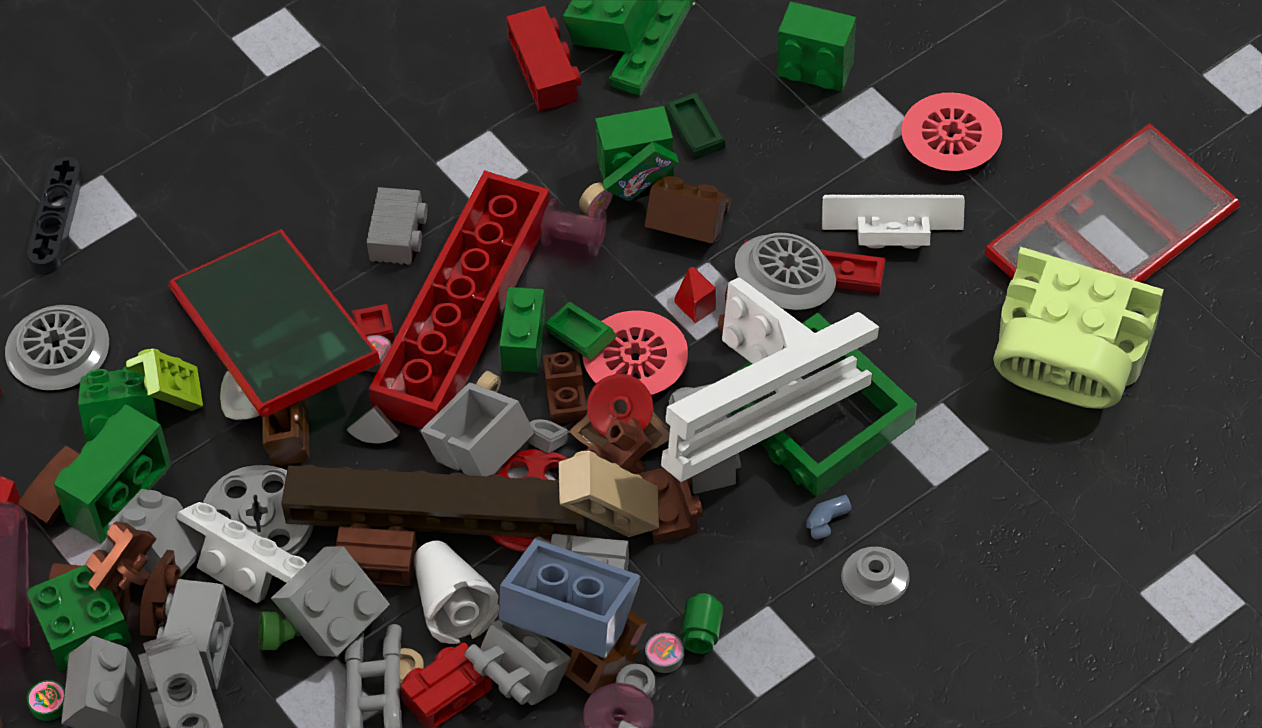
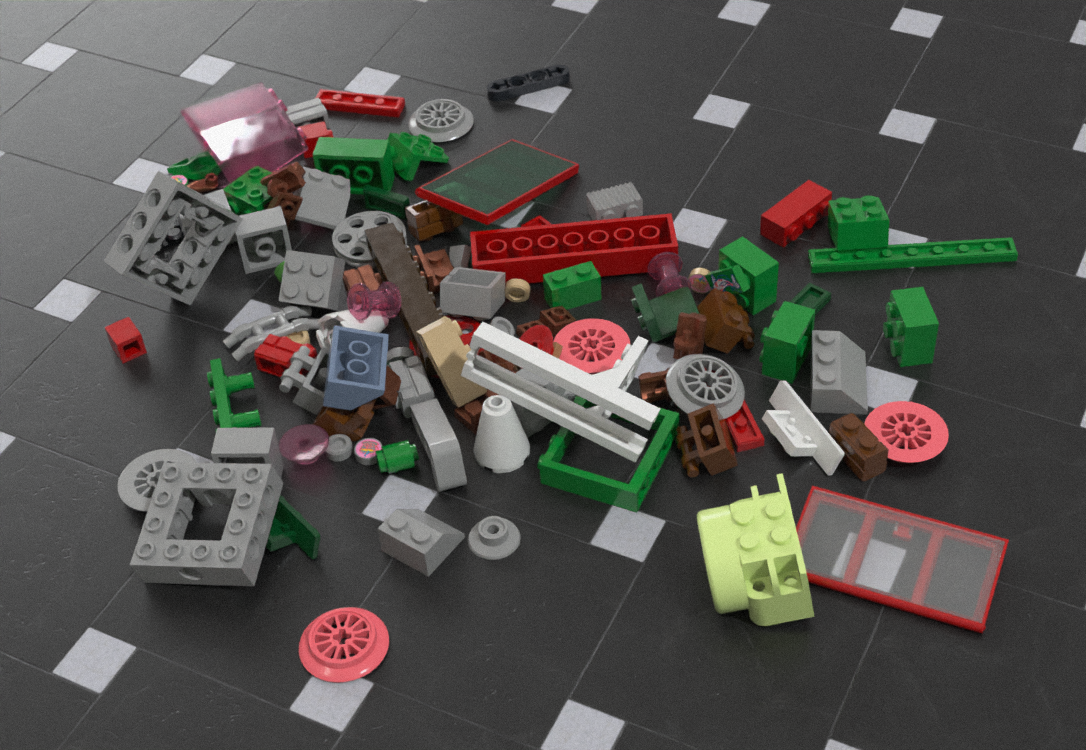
camera: 65 degrees right, 10 degrees down
(168, 378) = (429, 156): lime bracket -> none
(204, 467) = (386, 201): none -> dark green tile
(237, 554) = (337, 231): white bracket -> none
(379, 454) = (433, 266): none -> copper bracket
(450, 541) = (364, 301): none -> clear pink hose
(580, 330) = (590, 312): green tile -> none
(632, 254) = (662, 313): none -> dark green bracket
(696, 296) = (658, 356): red slope -> none
(699, 246) = (689, 335): none -> copper hips
(709, 563) = (439, 444): none -> light grey beam
(742, 503) = (500, 437): none -> white cone
(769, 163) = (787, 341): none -> green brick
(824, 512) = (524, 487): sand blue arm -> none
(828, 152) = (837, 374): none -> light grey slope
(847, 646) = (418, 539): none -> light grey slope
(876, 300) = (712, 442): none -> reddish brown brick
(956, 176) = (861, 447): none -> reddish brown brick

